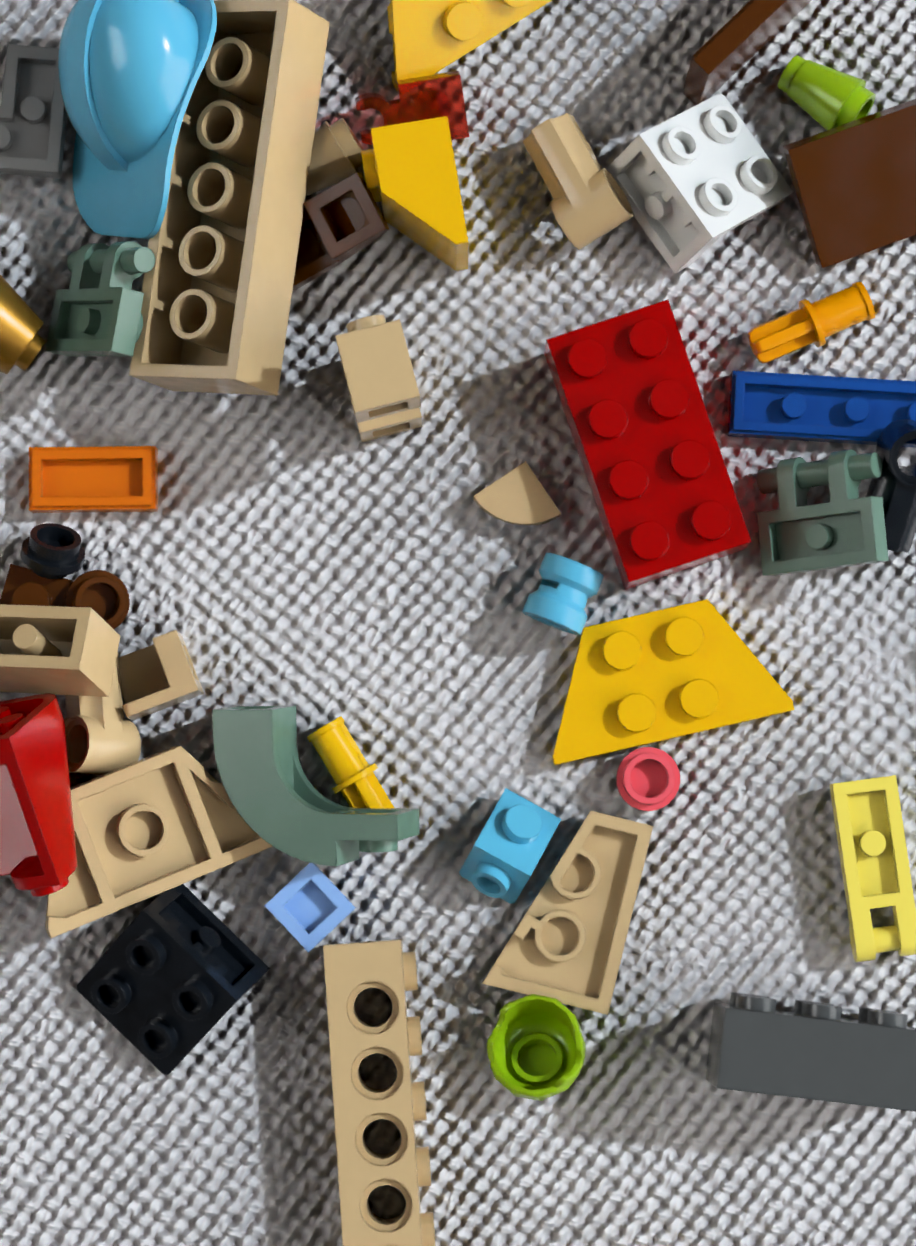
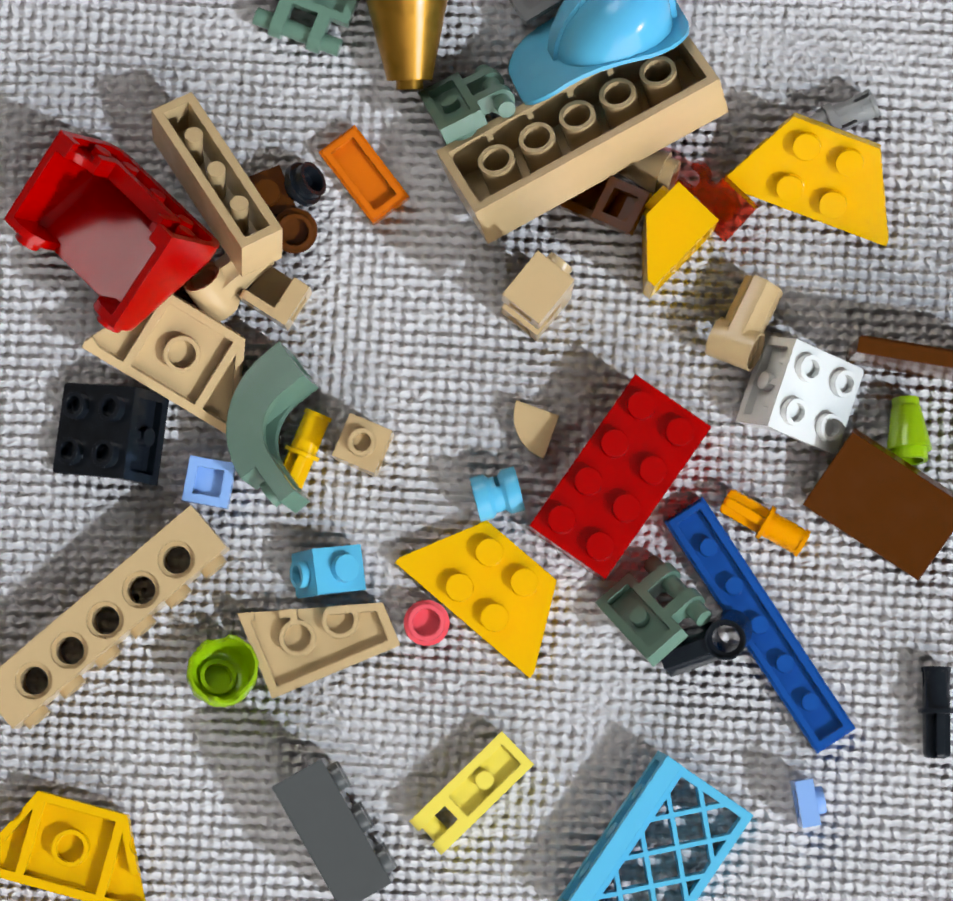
camera: 55 degrees right, 0 degrees up
(398, 701) = (363, 445): none -> tan brick

